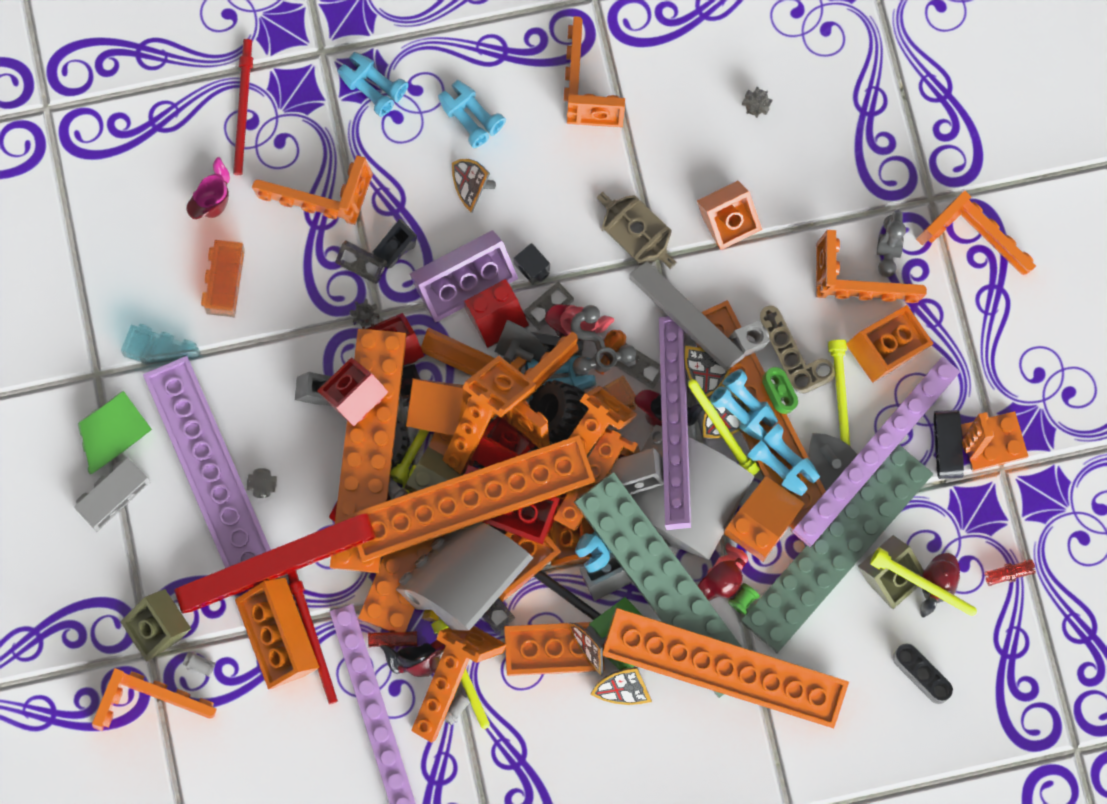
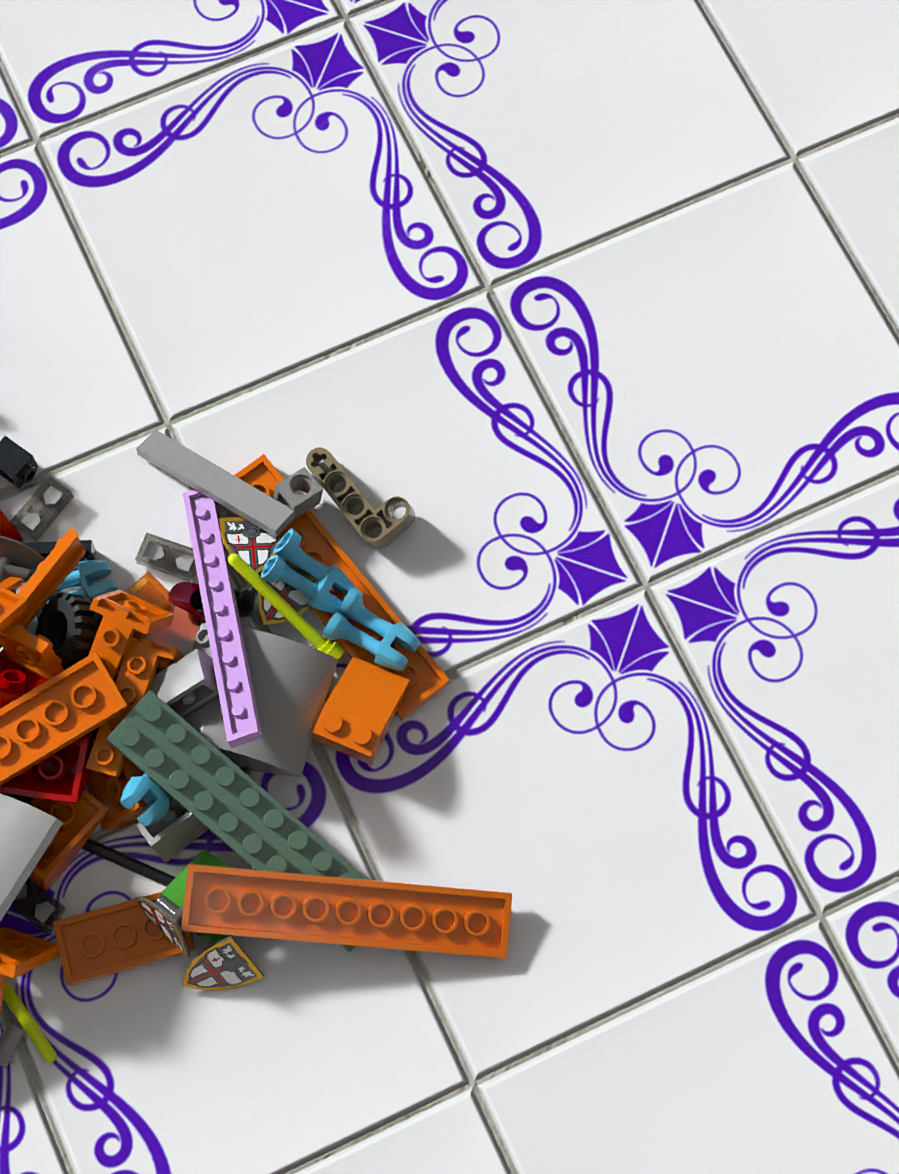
camera: 10 degrees left, 5 degrees down
(560, 318) = (80, 515): hair -> none
(583, 365) = (94, 569): dark grey piece -> none
(587, 108) = (47, 263): orange bracket -> none
(613, 340) = (131, 536): orange plate -> none
(643, 246) = (151, 411): dark tan plate -> none
(725, 576) = (326, 793): dark red hair -> none
(729, 214) = (247, 353): orange slope -> none
(743, 599) = (356, 817): bright green bush -> none
(757, 102) = (260, 211): clear smoke gear -> none
(780, 390) = (350, 548): bright green plate -> none
(828, 268) = (419, 406): orange bracket -> none
(829, 457) = (434, 619): dark grey shield -> none
(837, 349) = (412, 485): neon yellow piece -> none
(837, 550) = (461, 730): sand green plate -> none
(875, 452) = (483, 600): lavender plate -> none
(882, 560) = (521, 727): neon yellow piece -> none
(886, 583) = (539, 740): olive slope -> none
(889, 343) = (473, 464): orange slope -> none
(891, 243) = (450, 344): dark grey piece -> none
(919, 661) = (596, 847): black beam -> none
(943, 572) = (599, 741): dark red hair -> none
(948, 444) = (573, 569): black beam -> none
(986, 227) = (560, 302): orange bracket -> none
(993, 441) = (626, 552): orange bracket -> none
(1010, 572) = (685, 710): clear red pin -> none

